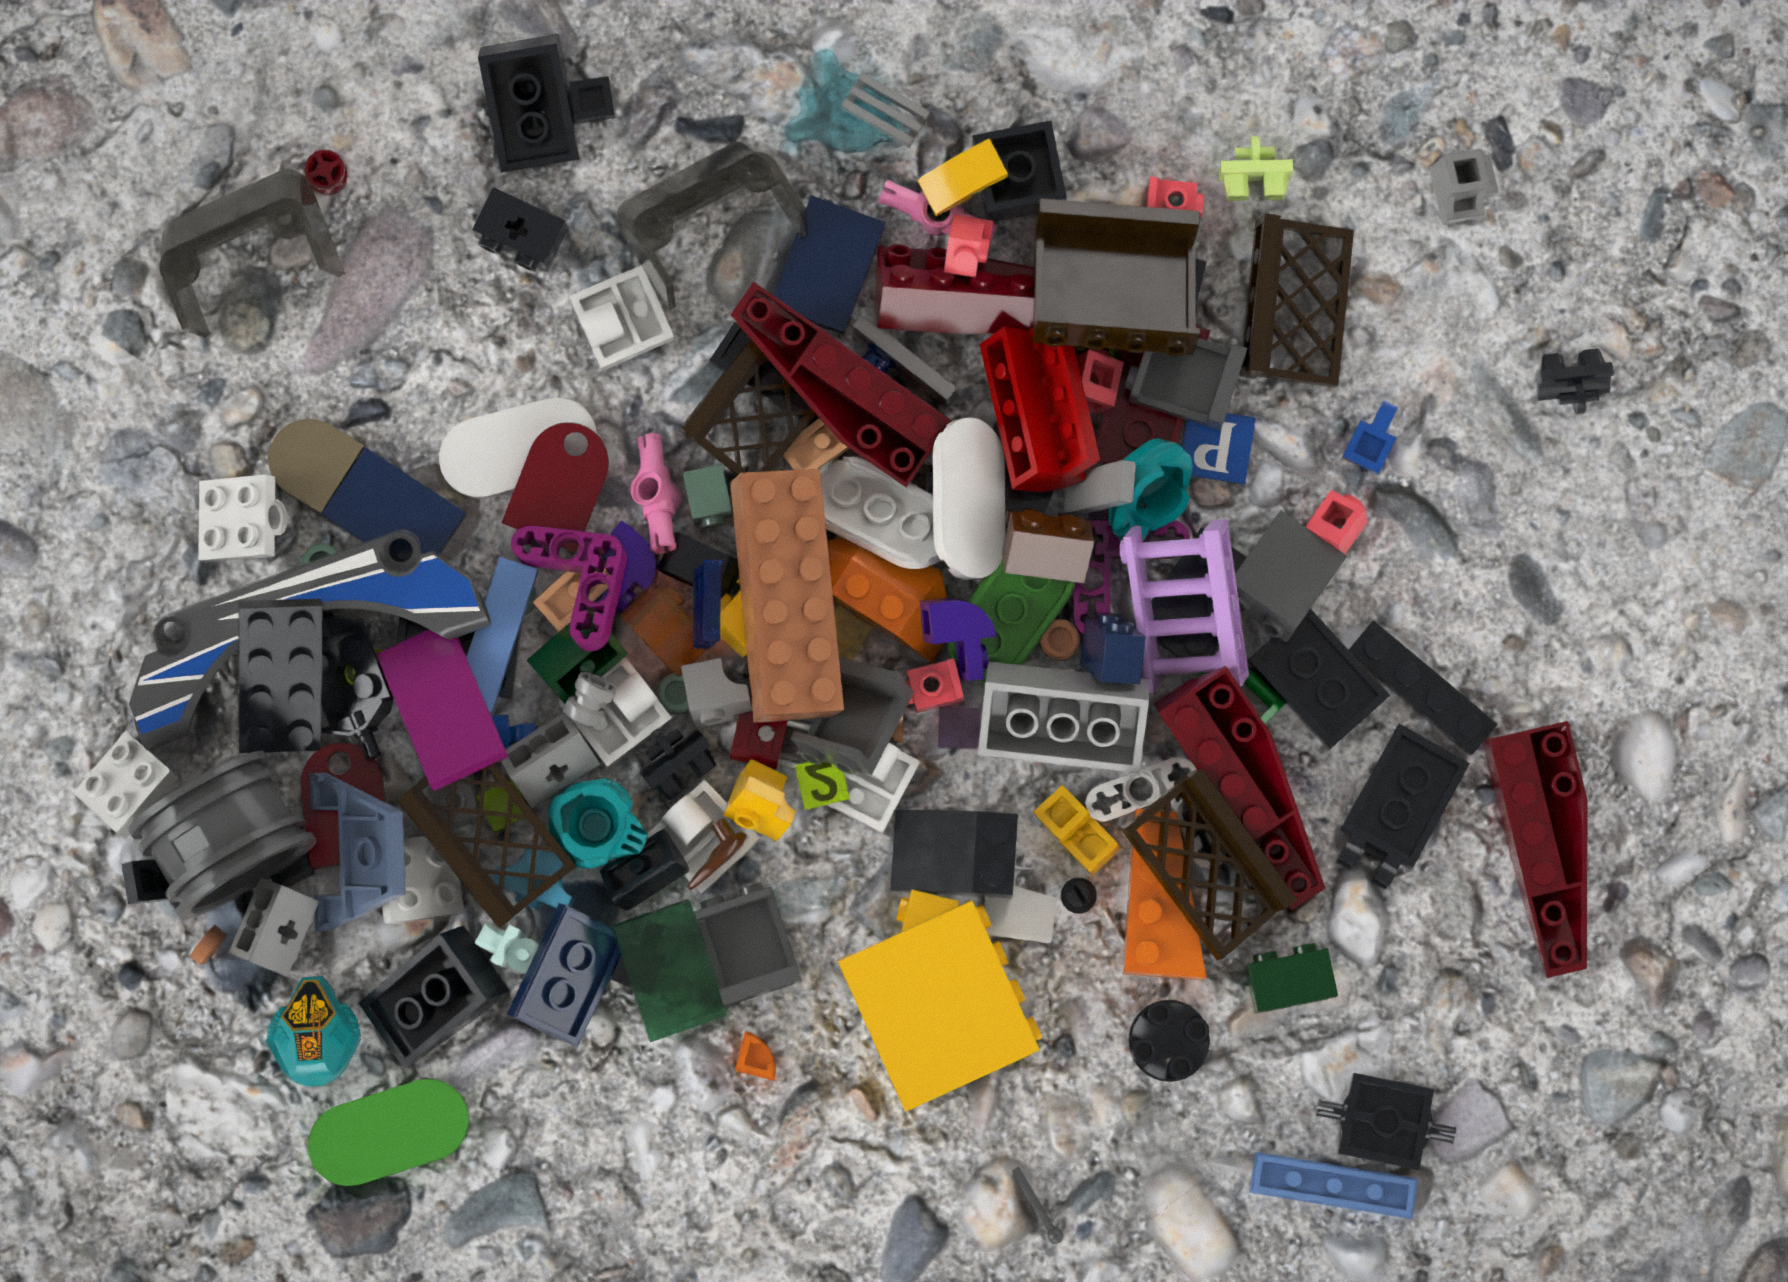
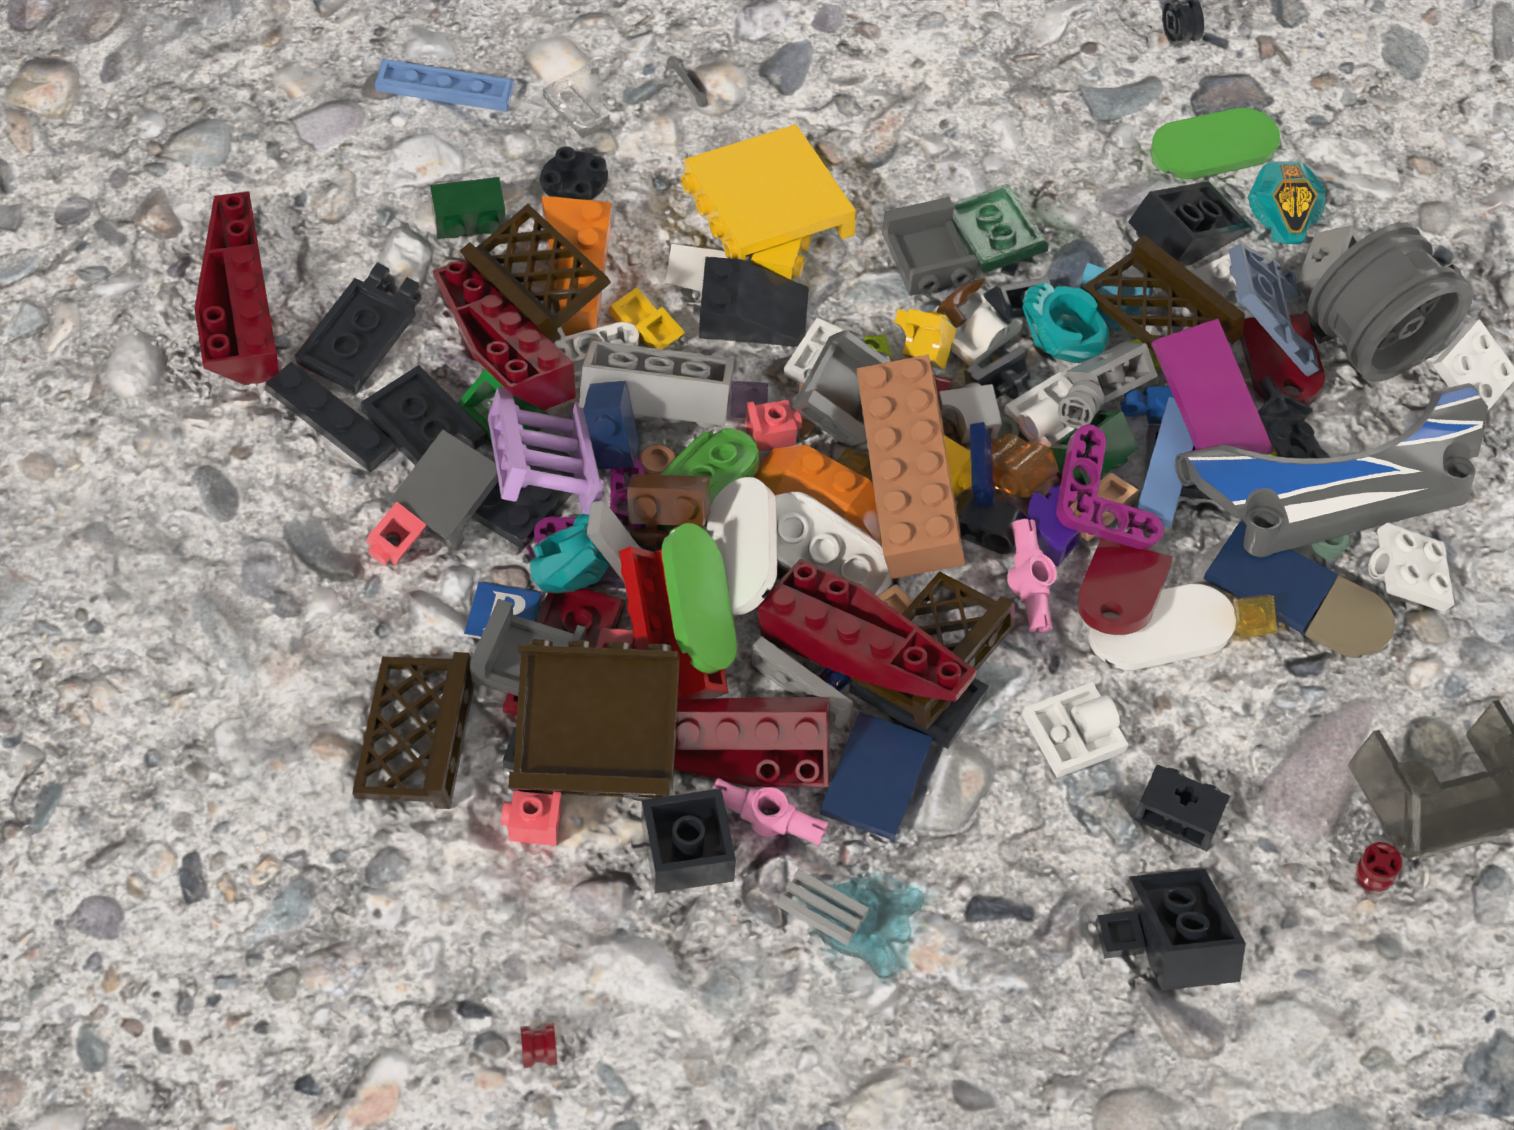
camera: 175 degrees right, 25 degrees down
(279, 675) = (1359, 424): black plate -> none
(419, 456) = (1255, 615): none -> clear yellow plate
(508, 947) = (1122, 237): light aqua hips -> none
(567, 975) = (1081, 226): dark blue tile -> none
(649, 216) = (984, 849): clear smoke windscreen -> none
(708, 496) = (984, 572): sand green brick -> none
(756, 1058) = (918, 180): orange tile -> none
(962, 177) = (745, 819): yellow slope -> none
(962, 623) = (752, 447): dark purple brick -> none
(967, 245) = (741, 761): coral brick -> none
(1014, 414) = (699, 598): none -> bright green tile
(1078, 895) = (646, 277): black piece -> none
(1237, 173) = (447, 847): yellowish green hips -> none
(1371, 442) = (353, 603): blue plate -> none
(1385, 1121) = (397, 118): black plate -> none
(1462, 184) = (235, 827): light grey brick -> none
(1576, 383) = (133, 652): black hips -> none

